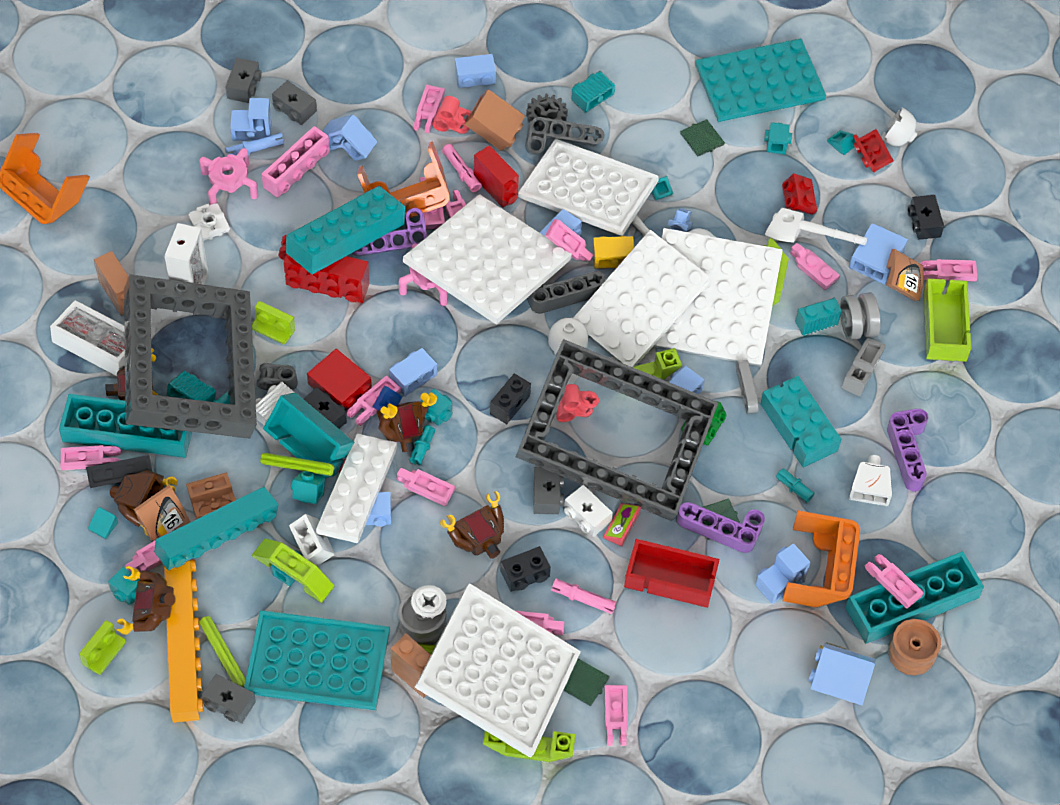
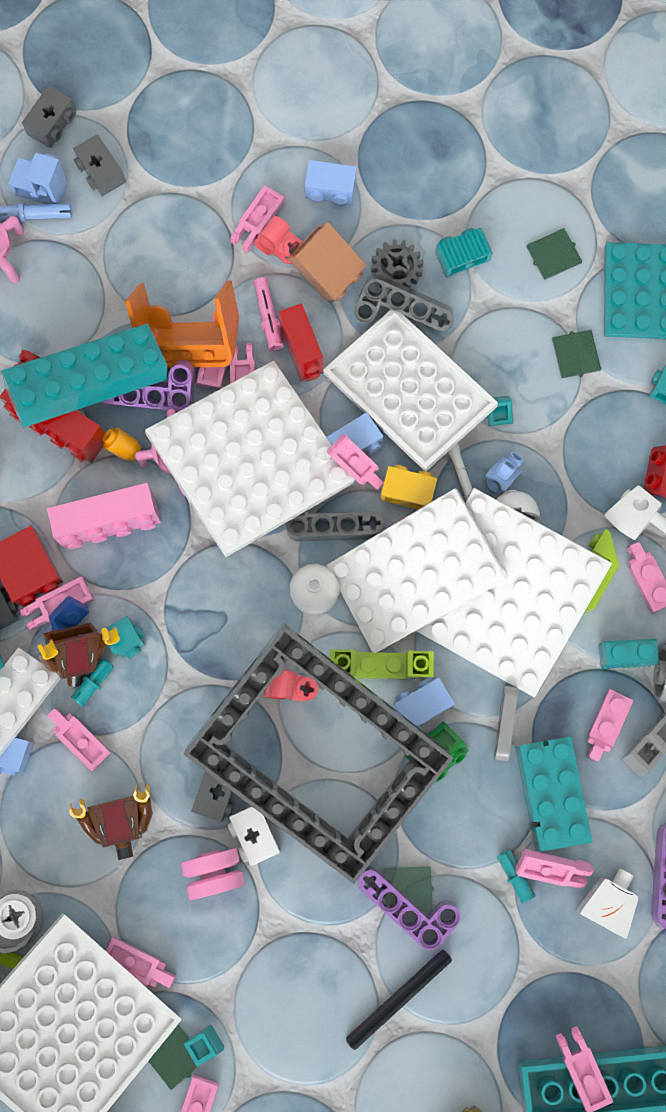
camera: 20 degrees right, 20 degrees up
(296, 162) = (71, 251): bright pink brick -> none
(351, 136) = (144, 232): light blue brick -> none
(384, 278) = (121, 444): none -> light orange brick
(391, 327) = (104, 516): none -> bright pink brick
(413, 371) = (114, 579): light blue brick -> none
(510, 398) = (215, 653): black brick -> none
(525, 569) = (154, 890): black brick -> none
(567, 539) = (213, 875): none -> bright pink wheel
(576, 593) = (211, 946): bright pink pin -> none
(604, 665) = (204, 1046): none -> teal slope
(622, 523) = (288, 863): slope -> none
(660, 78) = (554, 254): none -> clear green piece
(671, 573) = (323, 956): red piece -> none
(740, 592) = (398, 999): none -> black axle
(788, 567) = (454, 1000): light blue brick -> none
(819, 468) = (553, 869): none -> bright pink hinge
(822, 368) = (607, 723): none -> bright pink hinge
(841, 541) = (528, 1015): orange windscreen -> none

